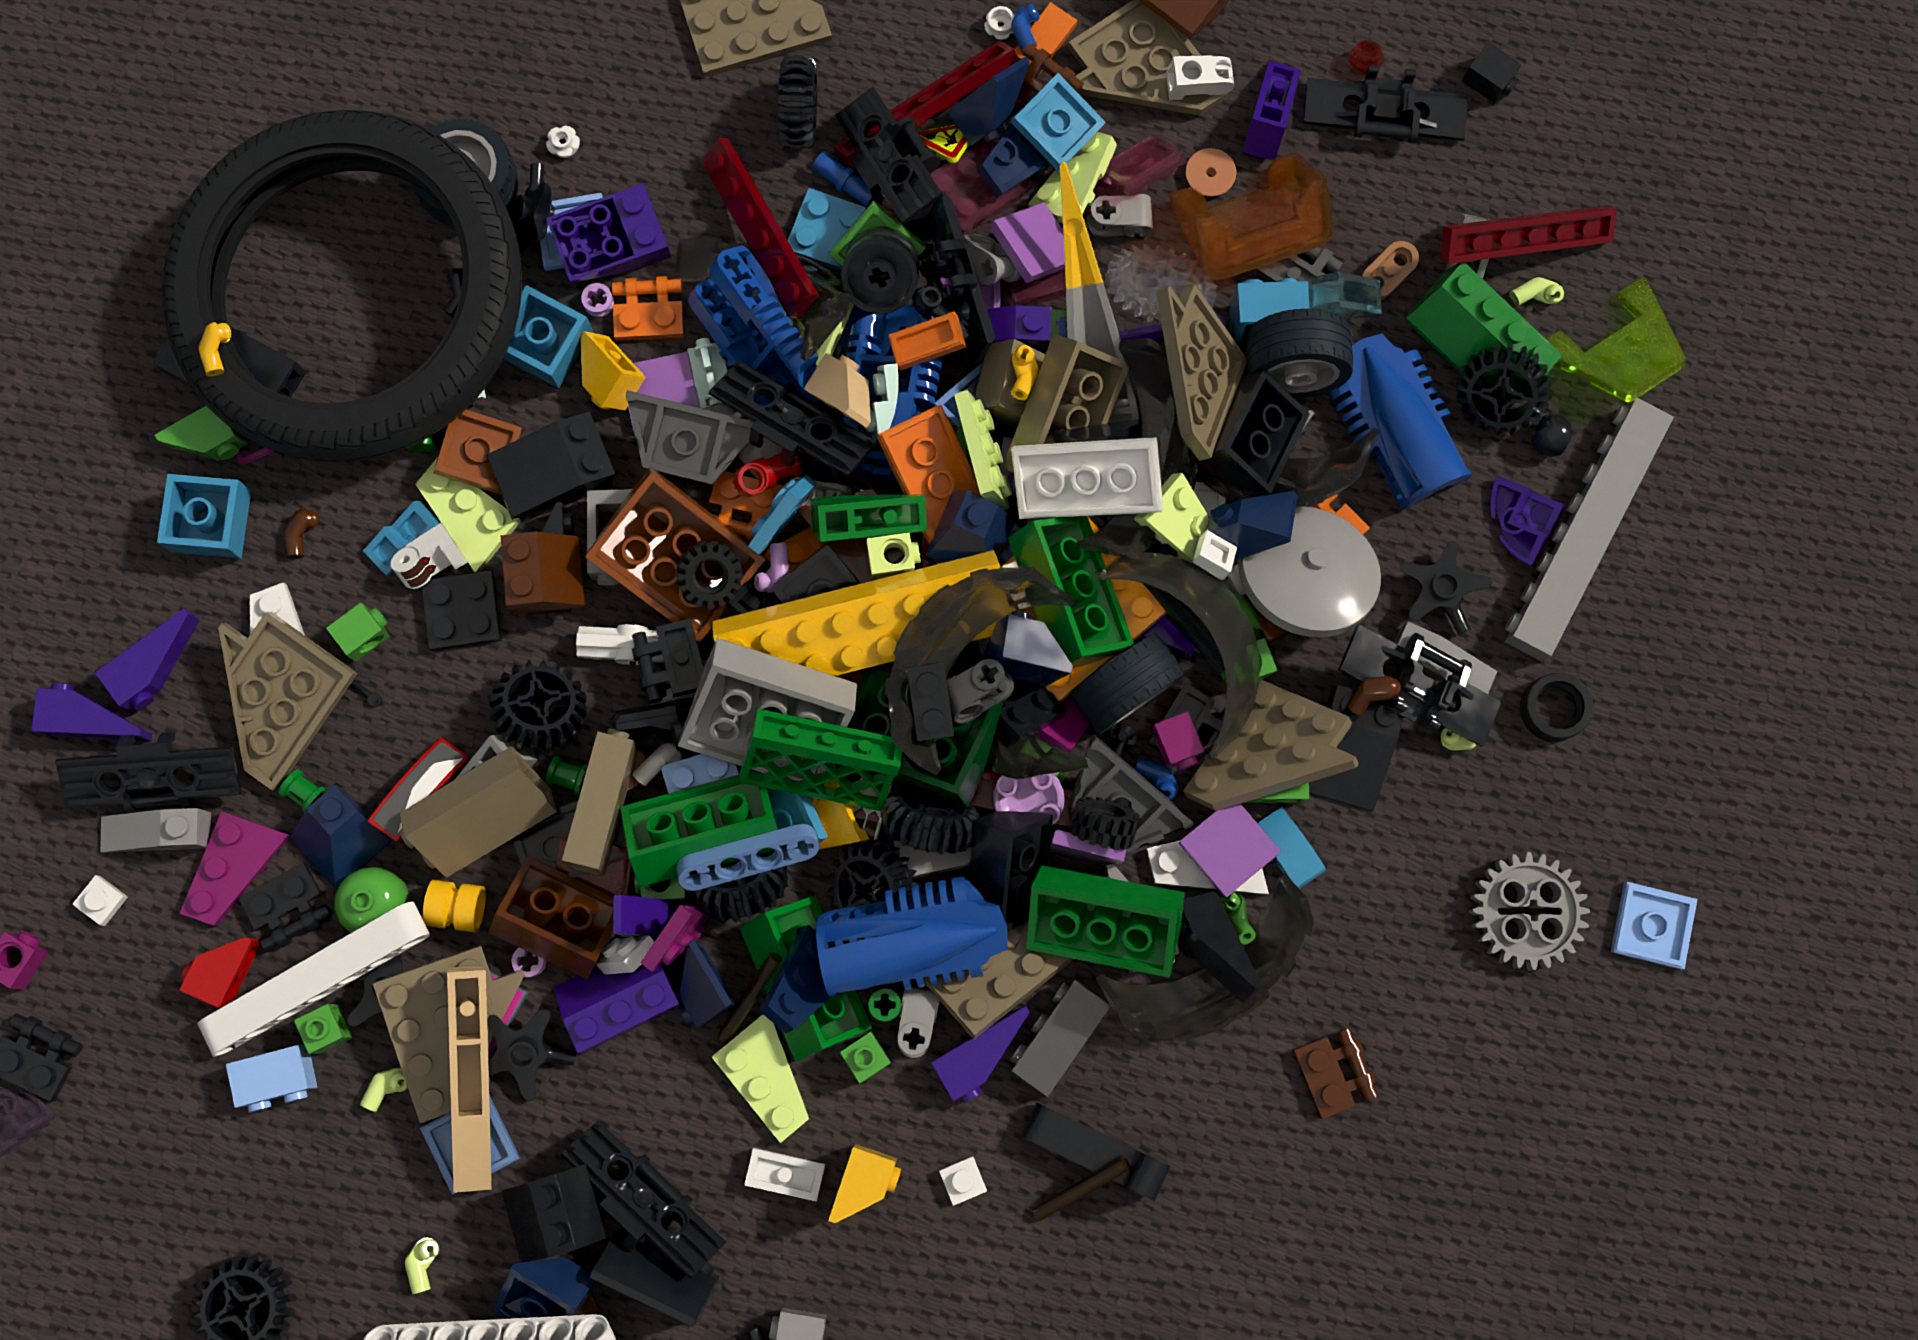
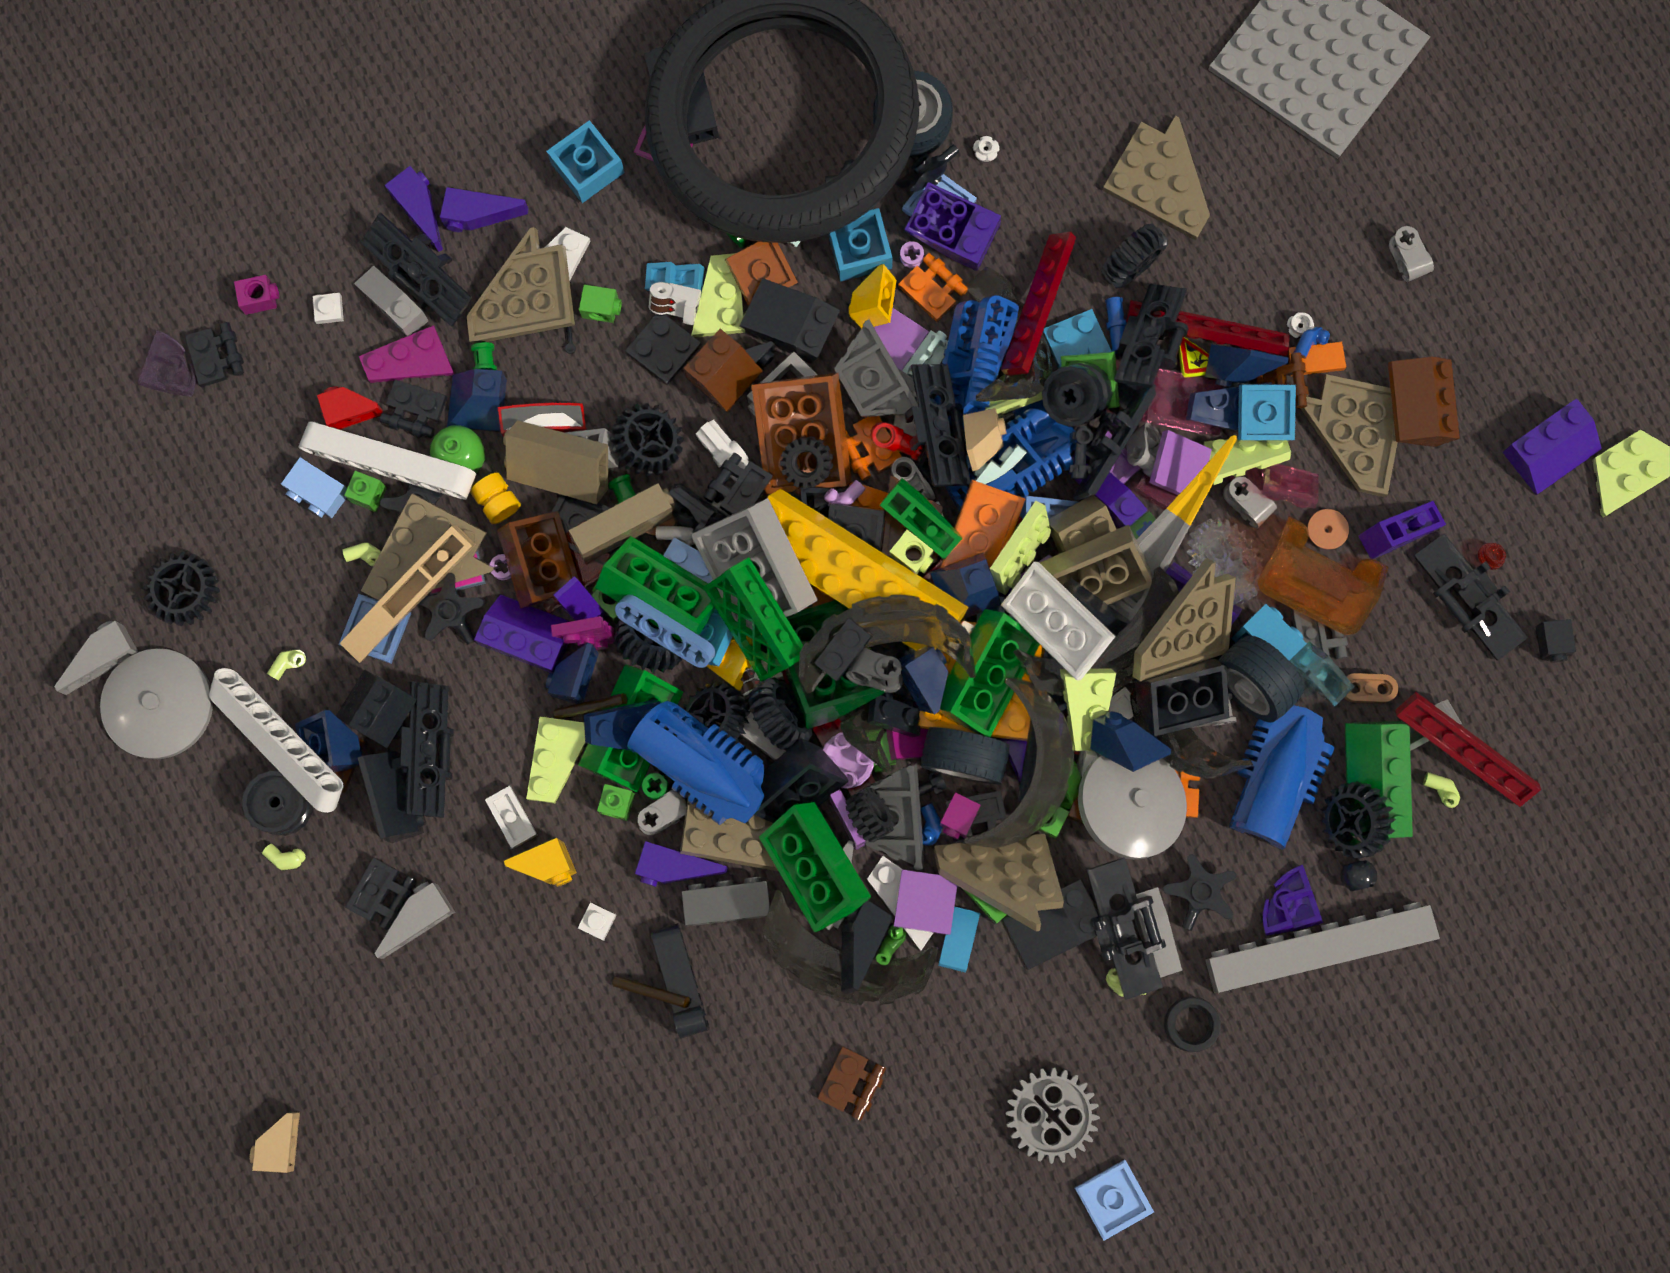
camera: 55 degrees right, 0 degrees up
(203, 436) = (629, 117): bright green slope -> none
(209, 346) = (675, 75): yellow arm -> none
(294, 530) = (623, 216): reddish brown arm -> none
(624, 954) = (550, 614): white plate -> none
(783, 509) = (878, 470): dark azure plate -> none
(927, 340) = (1056, 457): orange tile -> none
(1025, 370) = (1092, 529): yellow arm -> none
(1199, 76) = (1378, 468): white leg -> none
(1214, 555) = (1085, 735): white plate -> none
(1373, 690) = (1093, 901): reddish brown arm -> none
(1632, 357) = (1454, 881): clear neon green wing -> none

